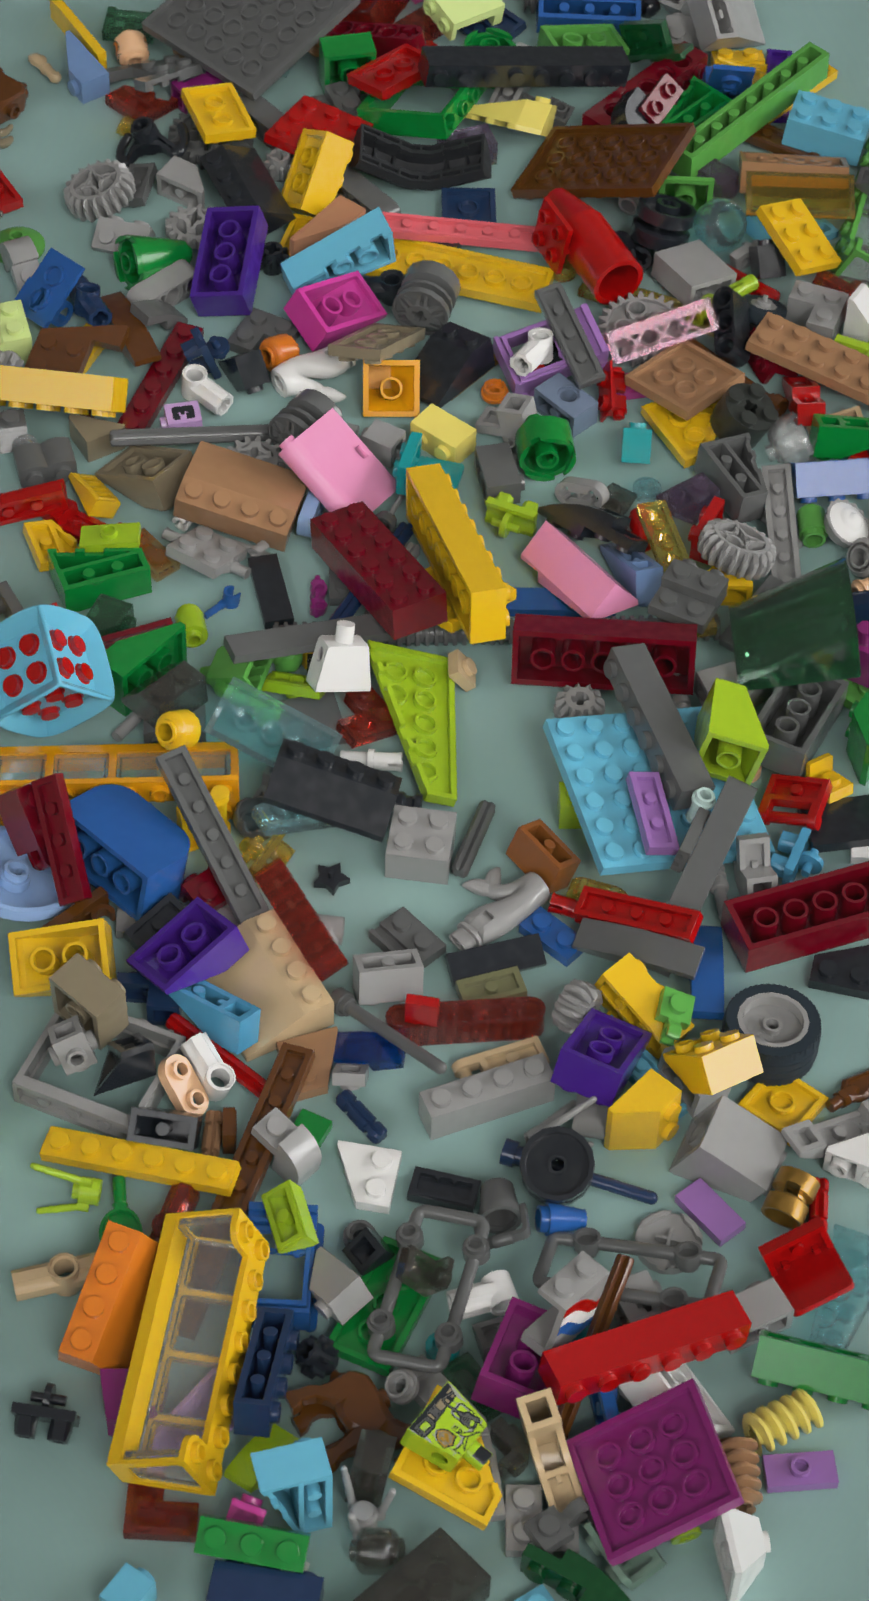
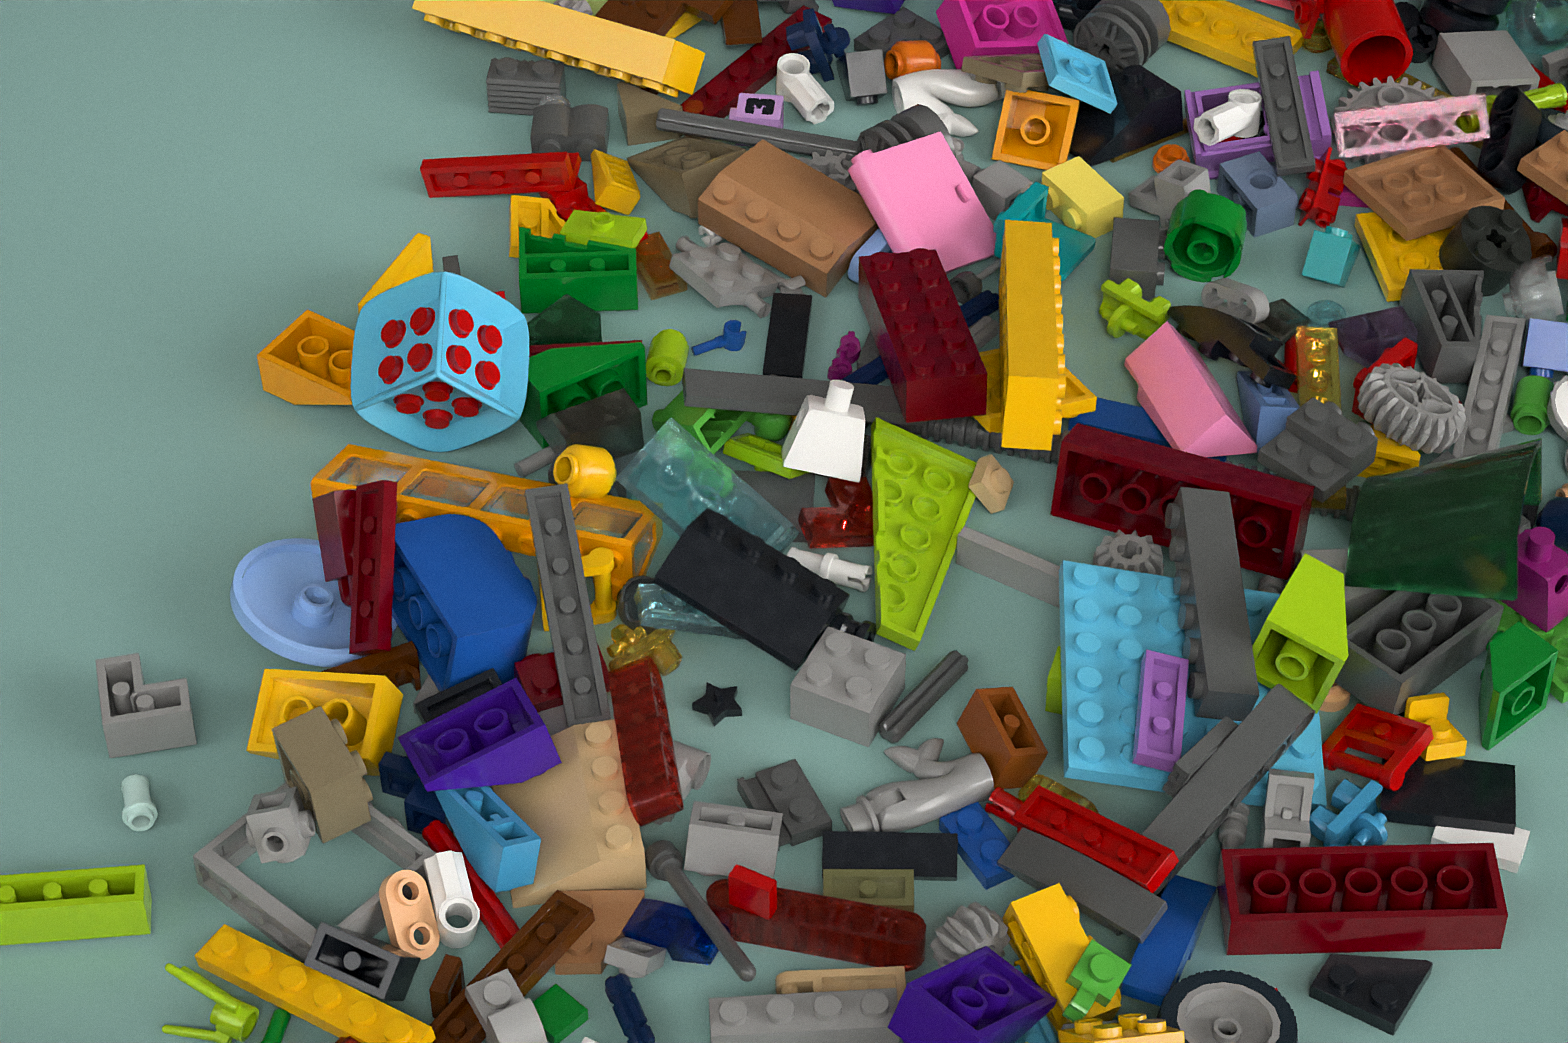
camera: 20 degrees right, 5 degrees down
(126, 1062) = (346, 868): black slope -> none
(212, 1133) = (417, 1000): medium nougat axle -> none
(412, 339) = (1077, 73): none -> medium azure tile
(502, 729) = (1008, 565): none -> light grey tile
(702, 798) = (1235, 706): light aqua pin -> none

